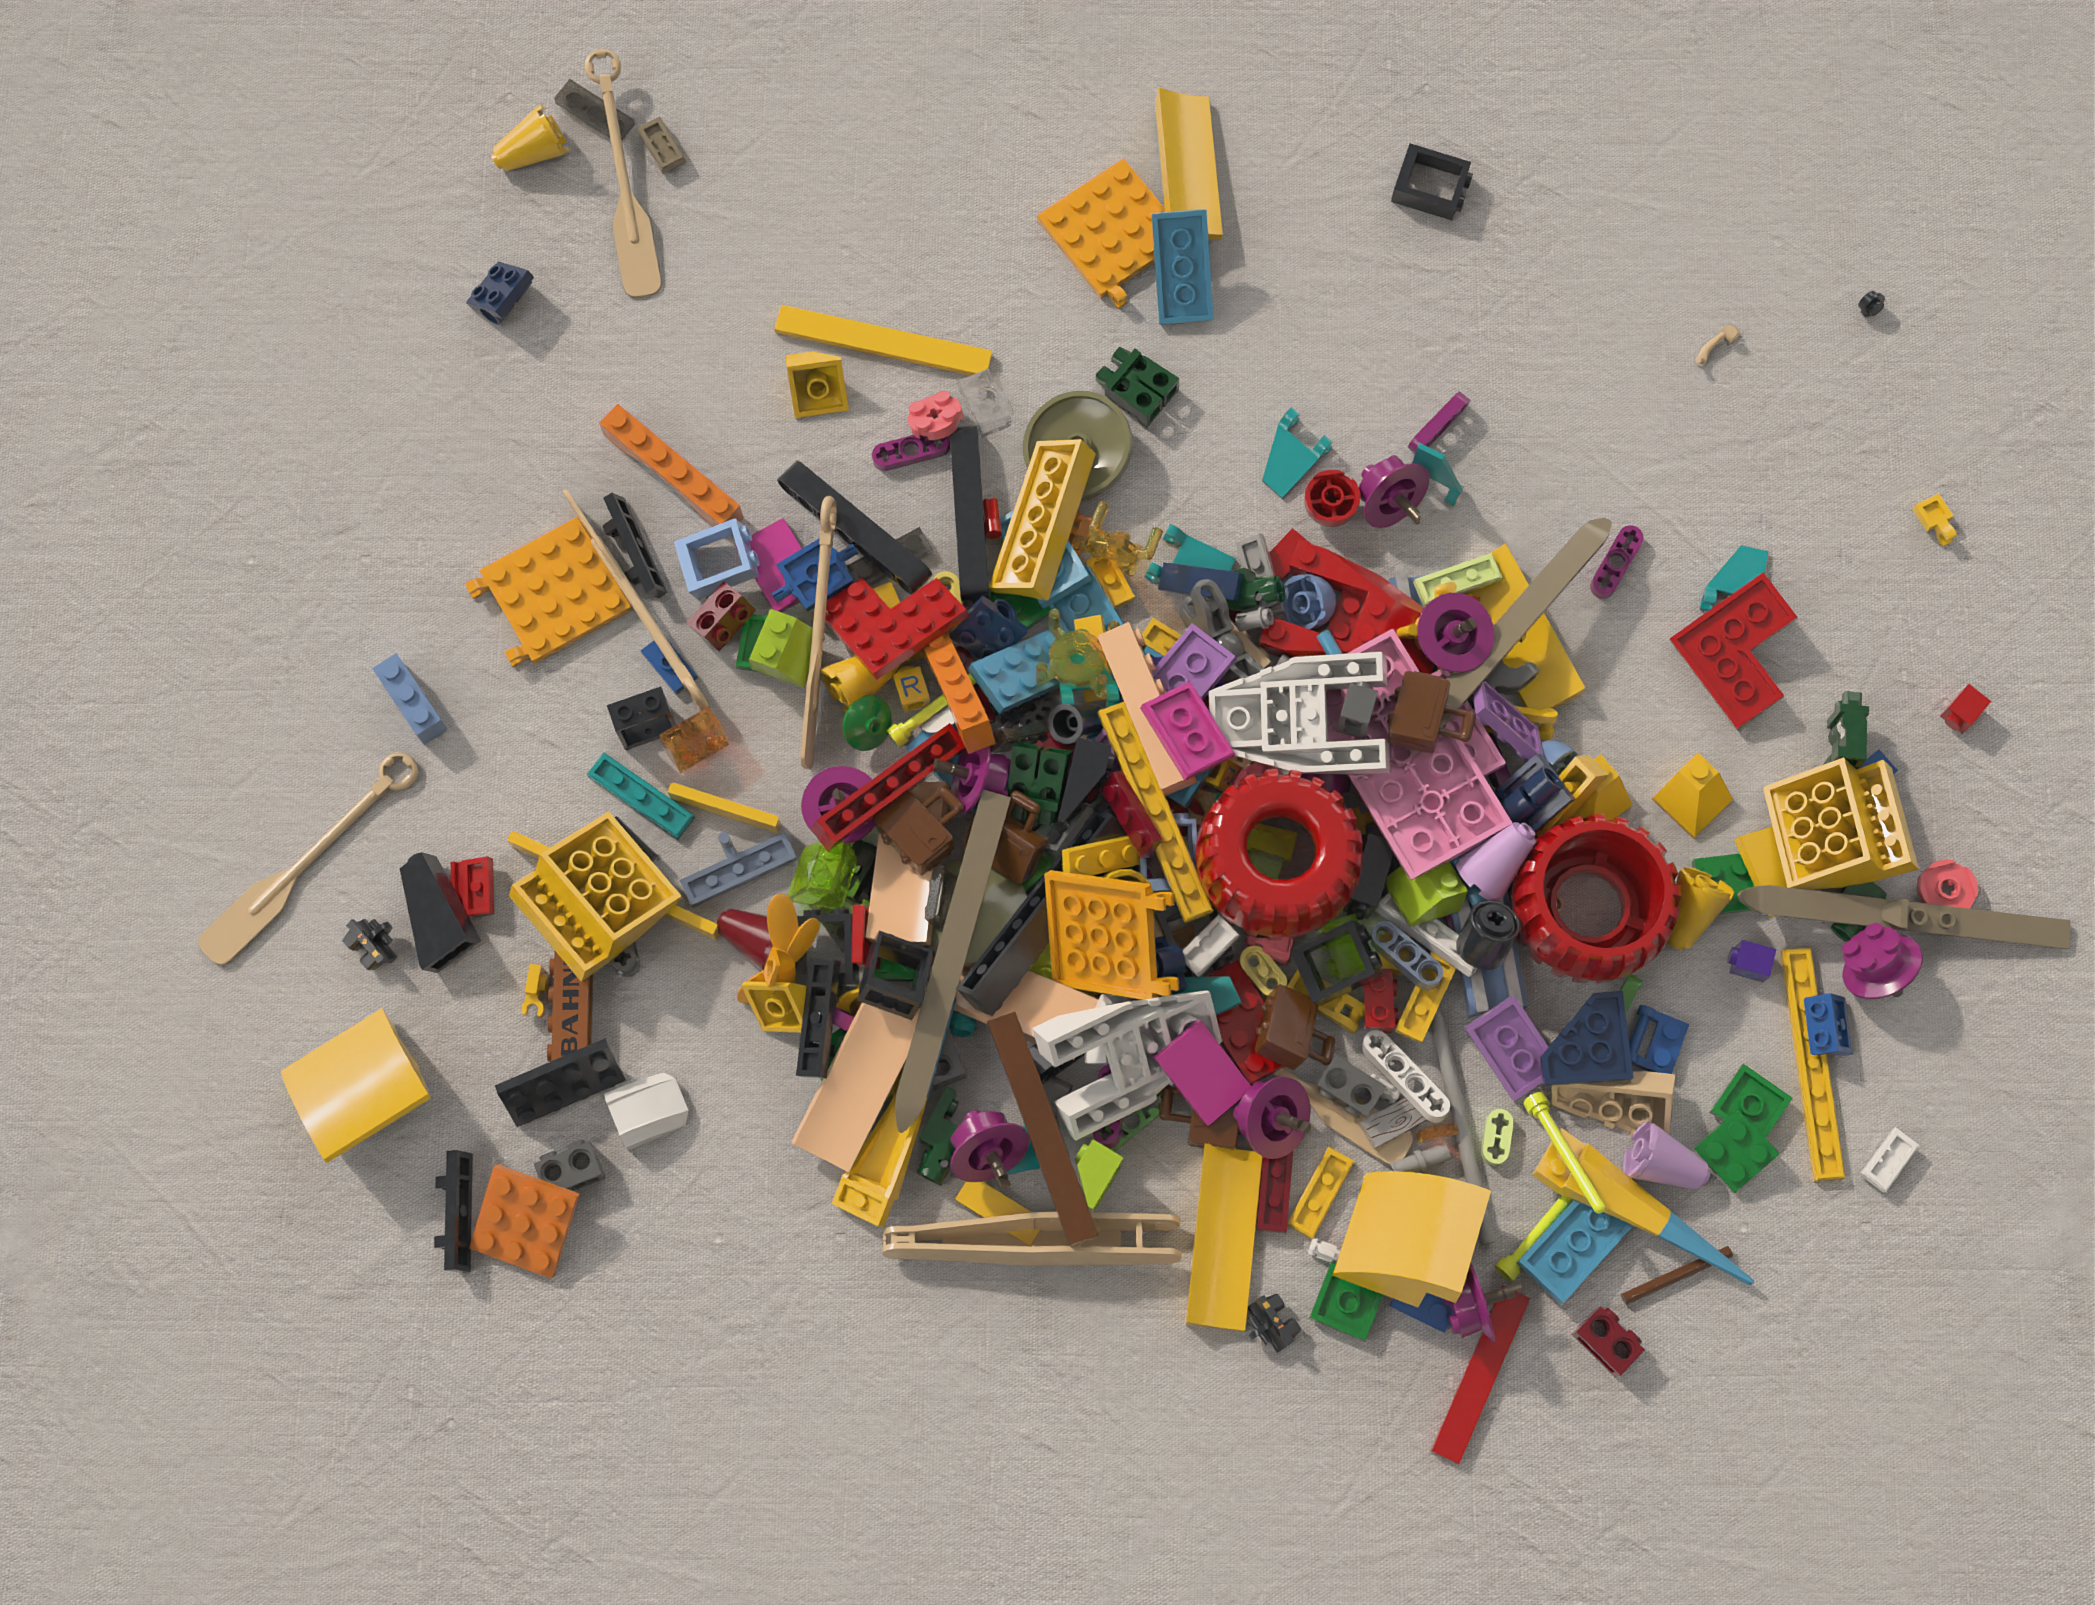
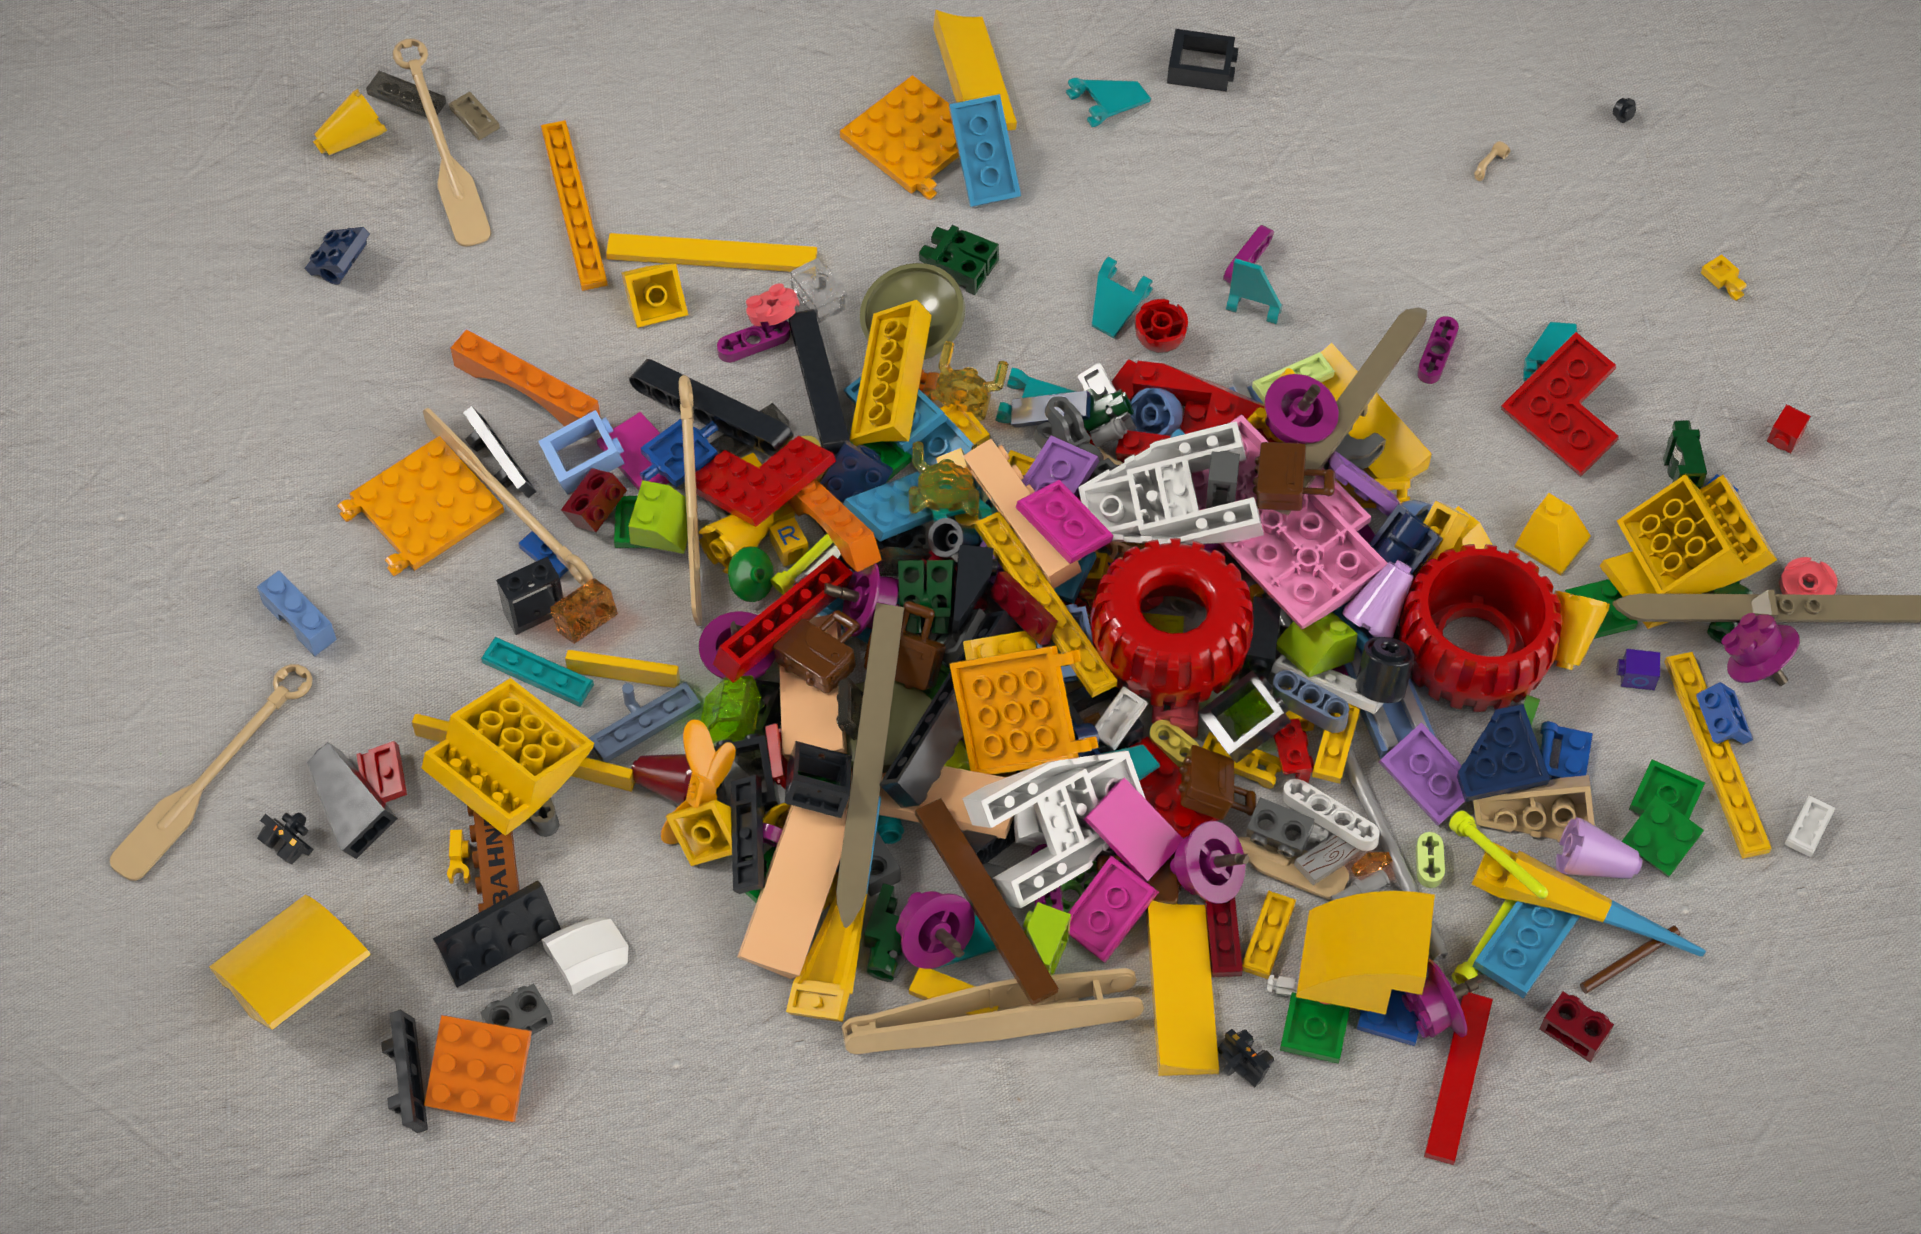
camera: 10 degrees left, 15 degrees down
(750, 264) = (574, 205): none -> light orange tile
(992, 520) = (842, 385): red piece -> none
(1165, 1146) = (1109, 908): none -> dark pink tile
(1329, 211) = (1110, 96): none -> teal flag
(1392, 491) = (1217, 312): magenta piece -> none

